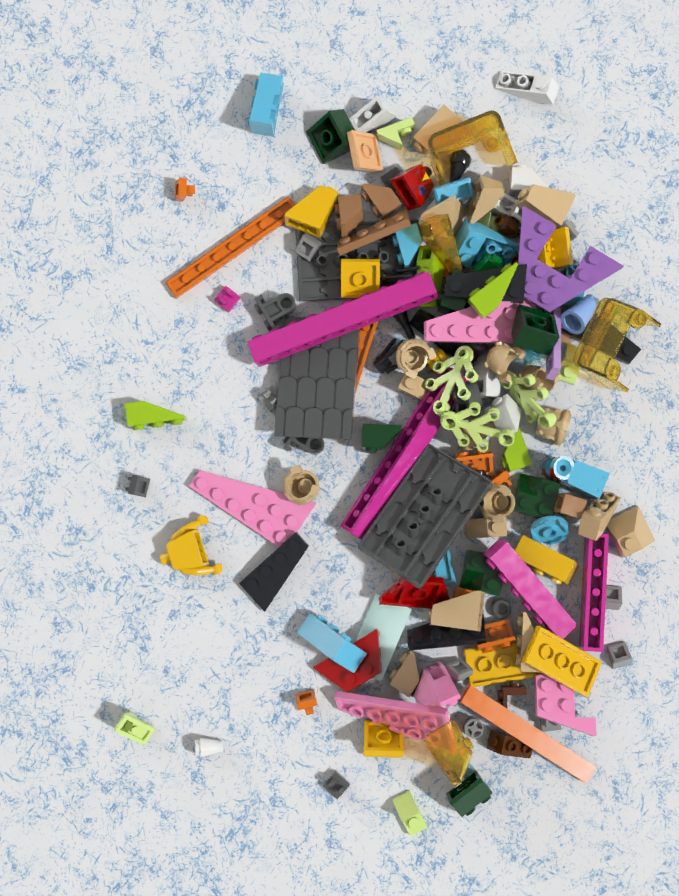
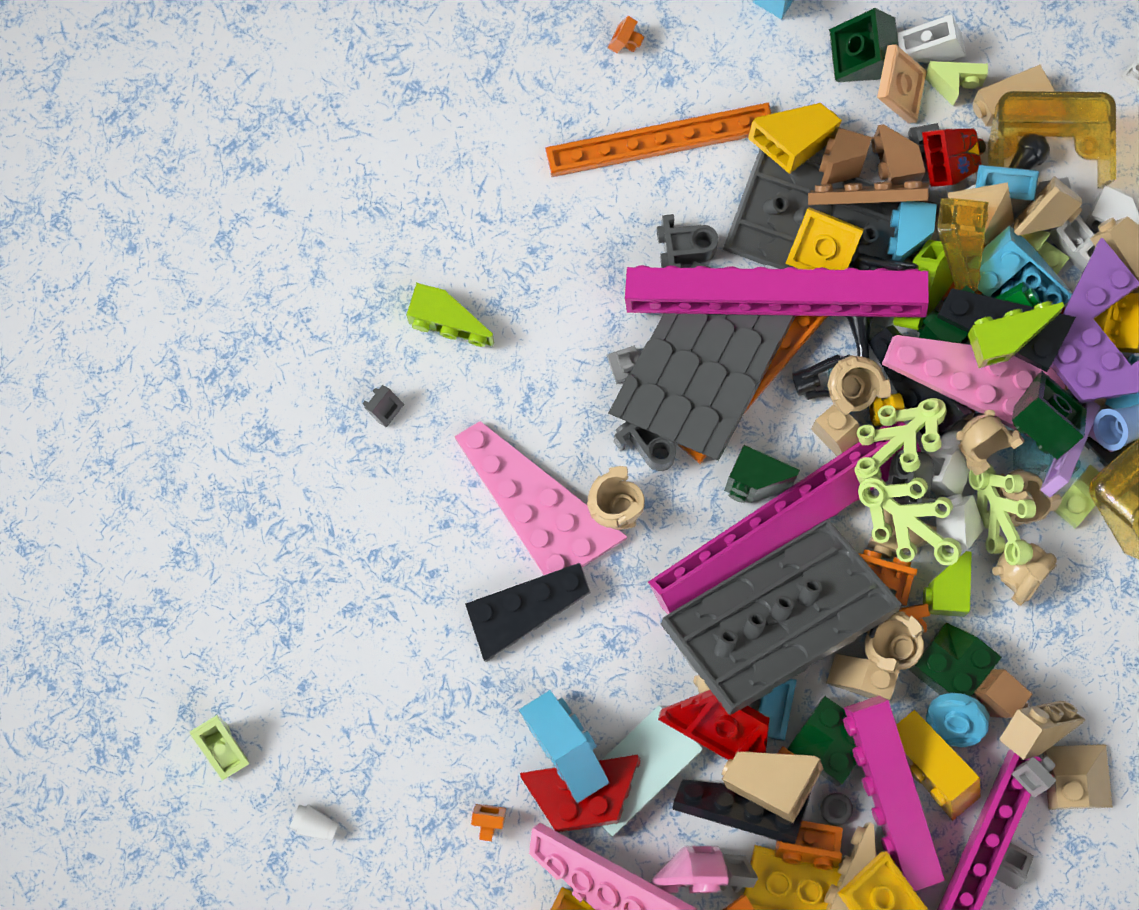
camera: 25 degrees right, 10 degrees down
(188, 552) = (412, 524): yellow torso -> none
(227, 299) = (622, 205): dark pink tile -> none
(307, 246) = (766, 178): light grey slope -> none
(406, 675) = (653, 846): tan slope -> none
(507, 225) = (1066, 262): reddish brown plant -> none
(576, 476) = (1029, 655): medium azure piece -> none
(606, 546) = (1035, 775): none -> light grey tile

